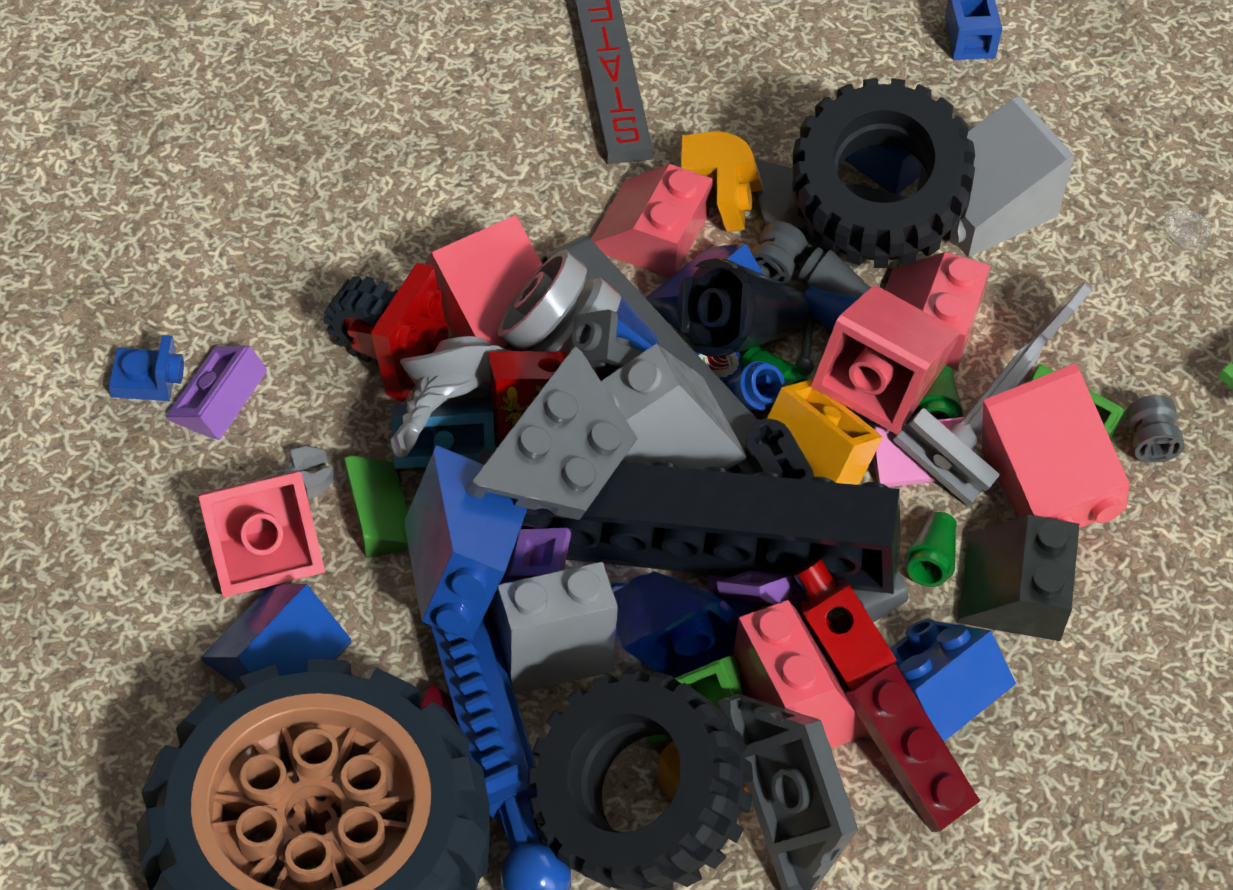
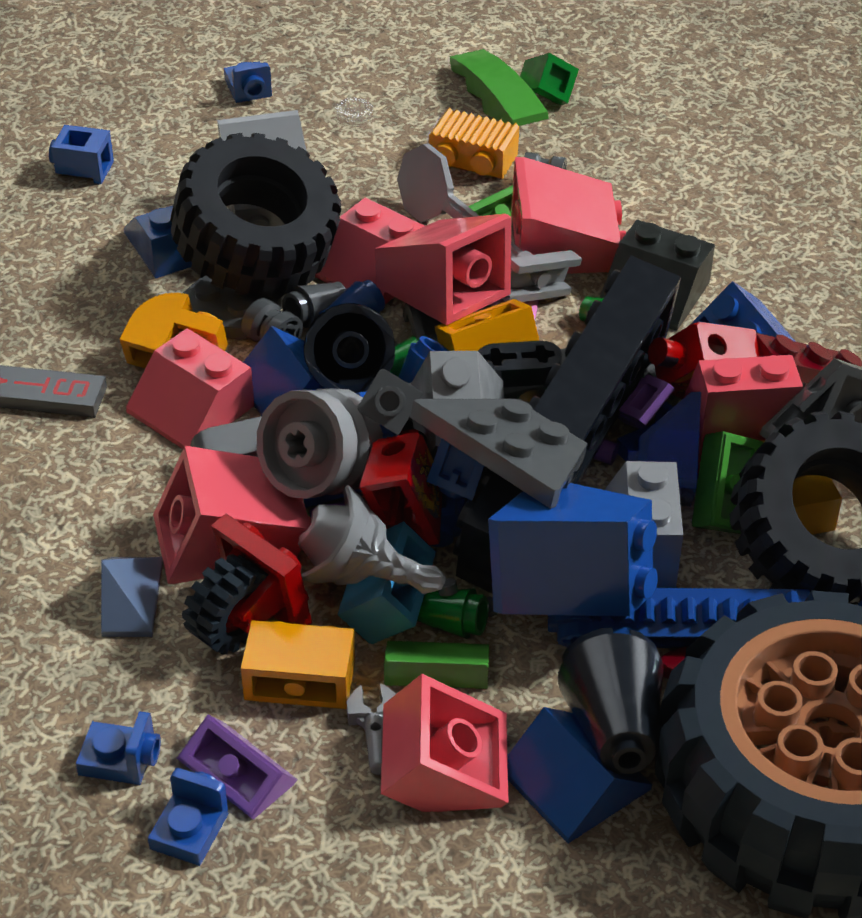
camera: 70 degrees left, 10 degrees down
(205, 302) = (119, 751): none -> blue bracket
(332, 396) = (298, 664): none -> light orange brick
(335, 628) = (615, 695): none -> black cone
(385, 249) = (129, 595): none -> sand blue slope
(1176, 350) = (476, 142): none -> light orange brick
(1187, 121) = (249, 81): none -> blue bracket

